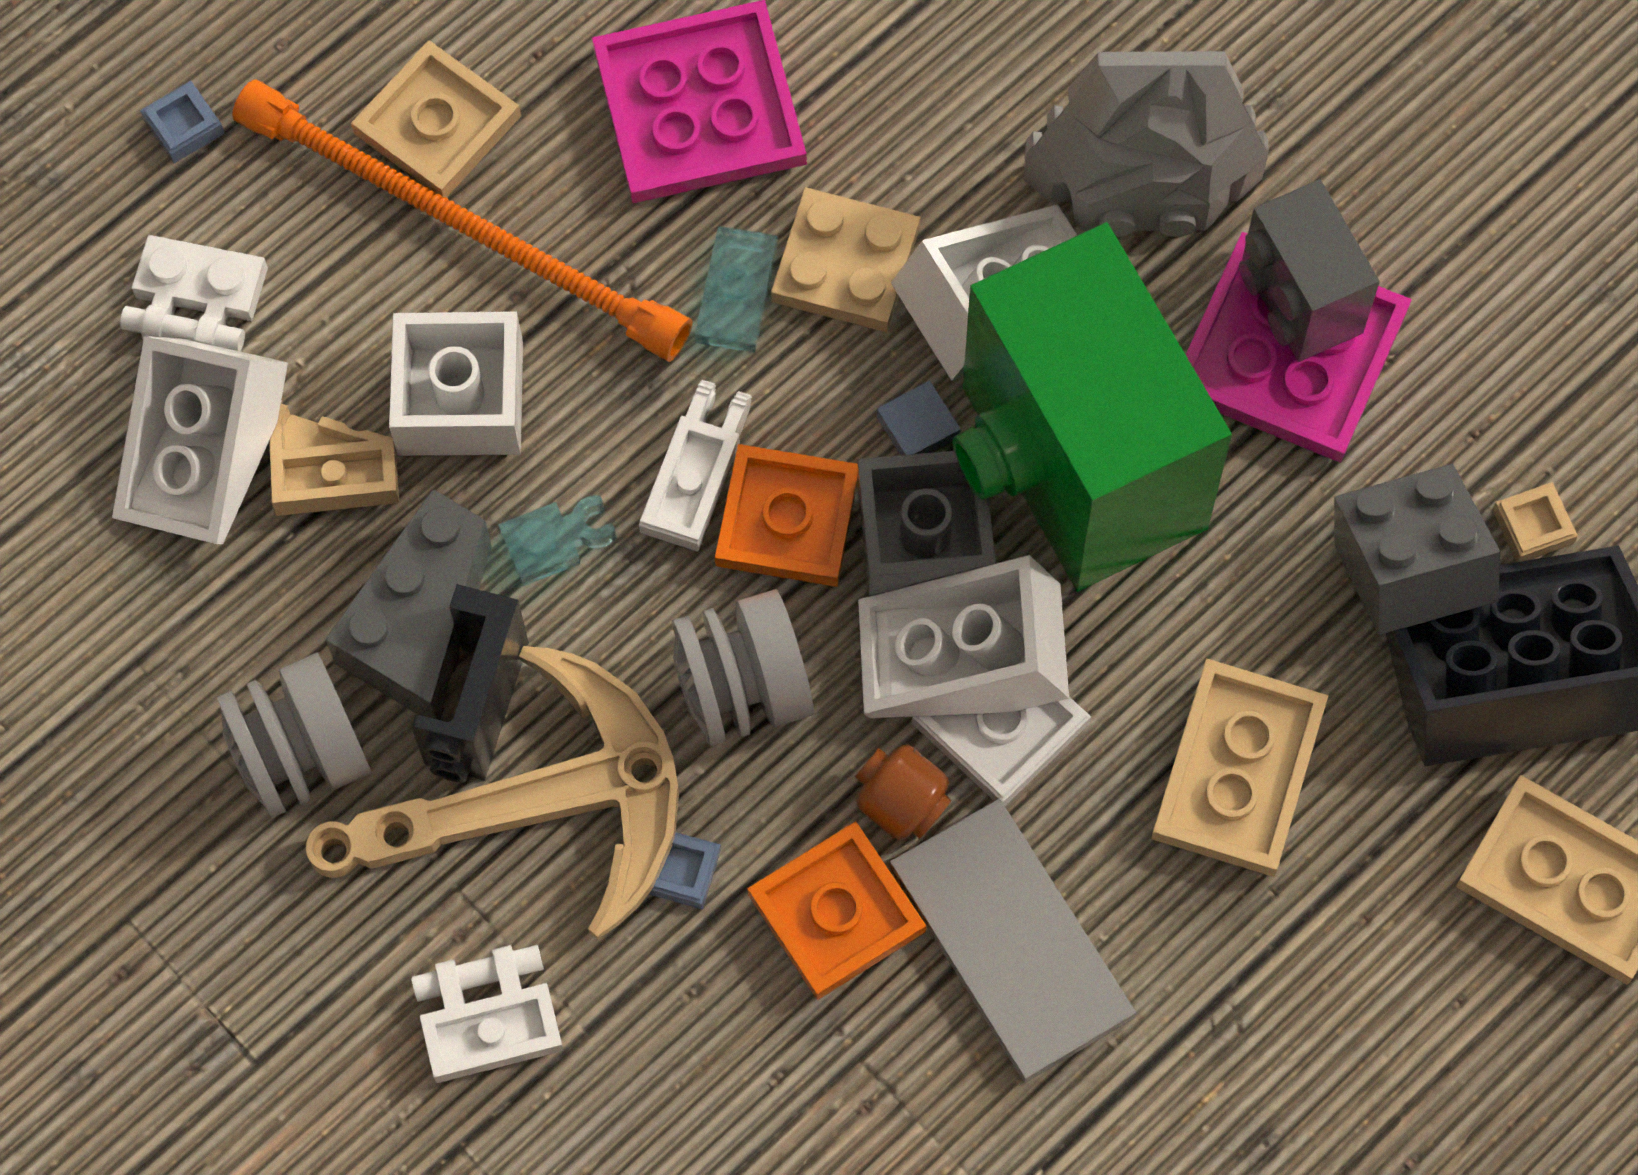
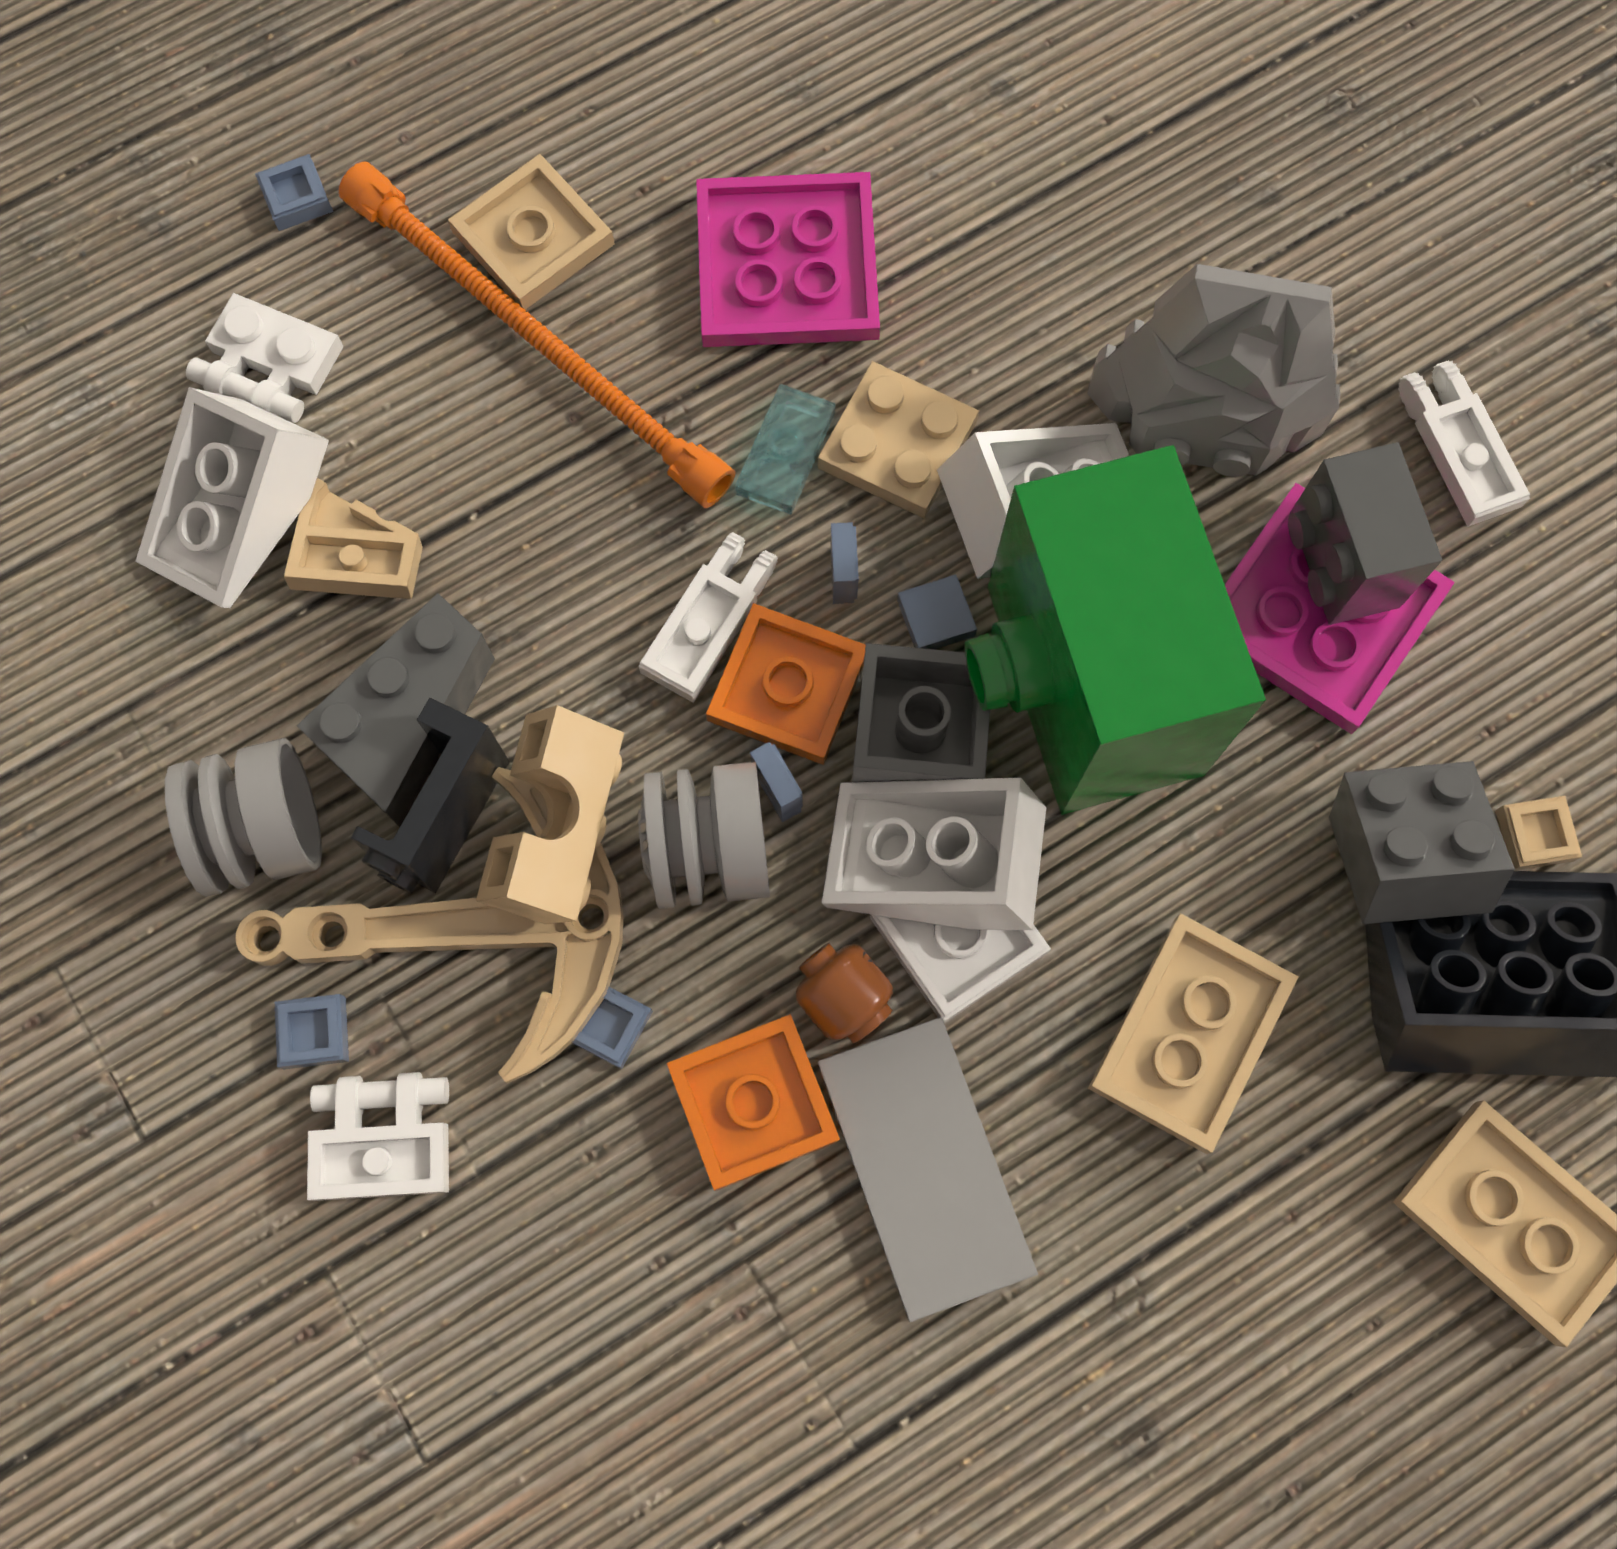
camera: 10 degrees right, 5 degrees up
(396, 930) = (311, 1031): none -> sand blue tile
(456, 383) = (488, 490): white brick -> none
(547, 542) = (545, 663): clear light blue plate -> none
(602, 629) = (573, 768): none -> tan arch
(804, 613) = (777, 781): none -> sand blue tile
(818, 389) = (844, 562): none -> sand blue tile
(1400, 165) = (1464, 444): none -> white hinge

